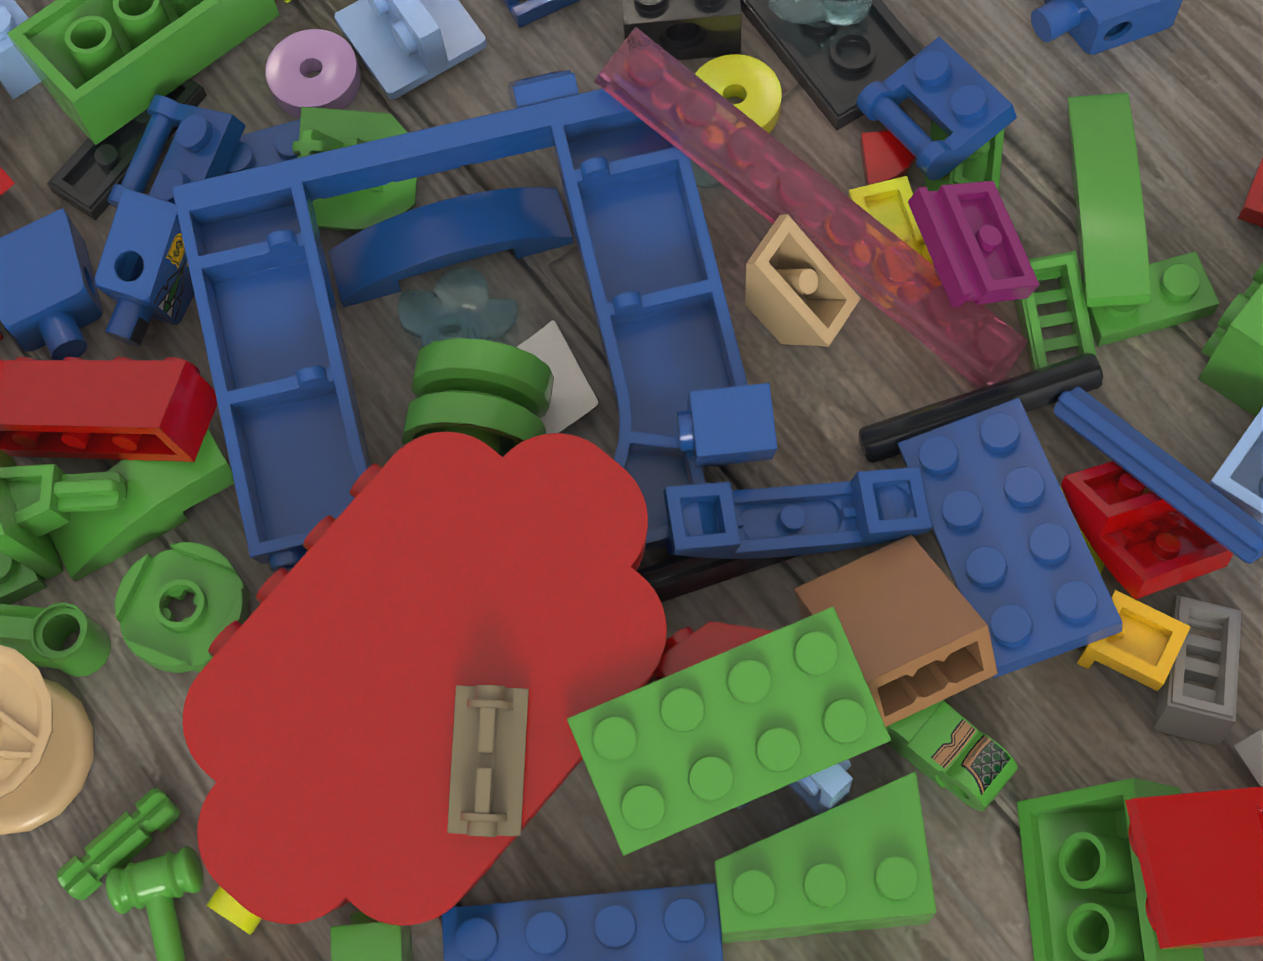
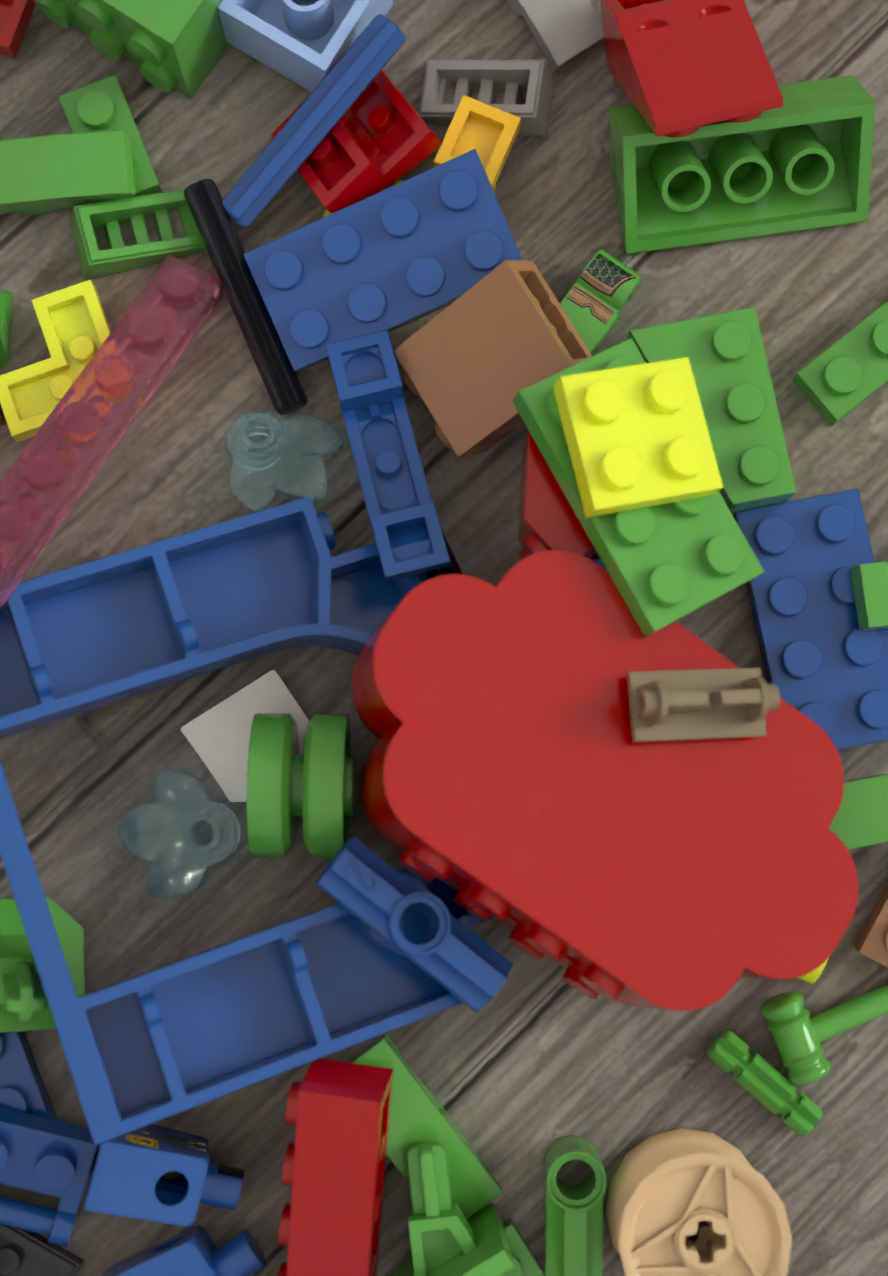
camera: 105 degrees left, 15 degrees up
(170, 575) = (545, 1097): bright green plate -> none
(287, 512) = (449, 949): none -> blue piece
(446, 235) = (91, 855): blue slope -> none
(728, 425) = (314, 520): blue brick -> none
(774, 719) = (637, 436): none -> neon yellow plate
(796, 288) = (143, 472): tan slope -> none
(809, 430) = (284, 462): none -> clear light blue plate
(973, 243) = (78, 302): magenta plate -> none

